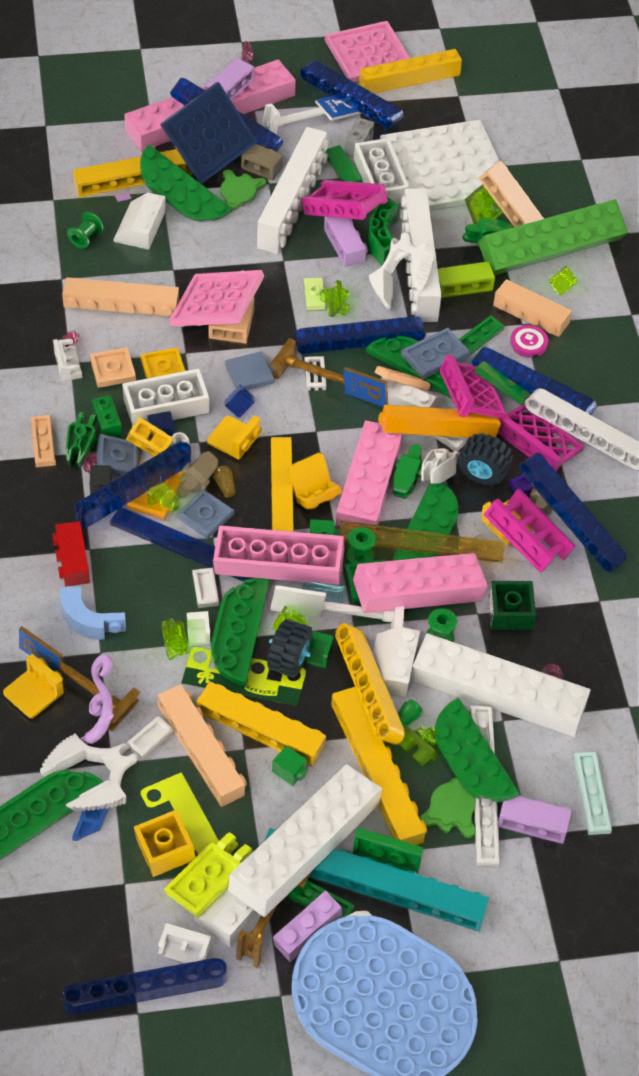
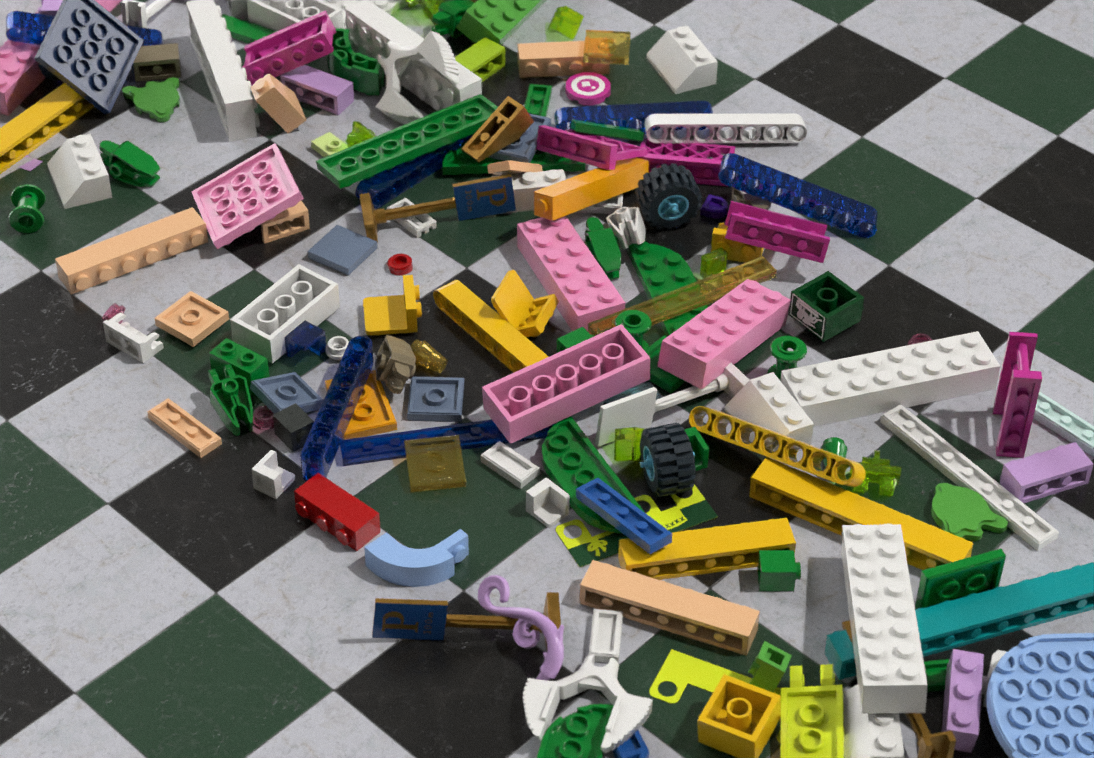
camera: 35 degrees left, 10 degrees down
(35, 687) = (435, 660): yellow bracket -> none
(59, 505) = (269, 477): none -> white panel
(149, 437) = (310, 356): yellow brick -> none
(159, 558) = (434, 463): none -> clear yellow tile
(162, 362) = (240, 289): yellow tile -> none
(164, 495) = (384, 399): clear neon green bracket -> none
(174, 231) = (129, 163): none -> green hinge
(174, 638) = (541, 523): clear neon green hips -> none
(179, 188) = (71, 118): green plate -> none
(212, 824) = (769, 667): none -> bright green brick
(224, 667) = (624, 515): none -> blue plate
(239, 401) = (363, 277): clear blue panel -> none
(275, 404) = (400, 264): none -> red tile
(302, 237) = (278, 102): none -> light nougat slope
(357, 316) = (406, 142): none -> green plate
(419, 342) = (499, 130): none -> pearl gold slope
(471, 755) = (936, 454): green plate -> none
(472, 526) = (713, 263): none -> clear neon green plate
(551, 751) = (1017, 394): none -> dark pink fence
(563, 317) = (607, 47): none -> clear yellow tile
(614, 357) = (683, 60): none -> white slope

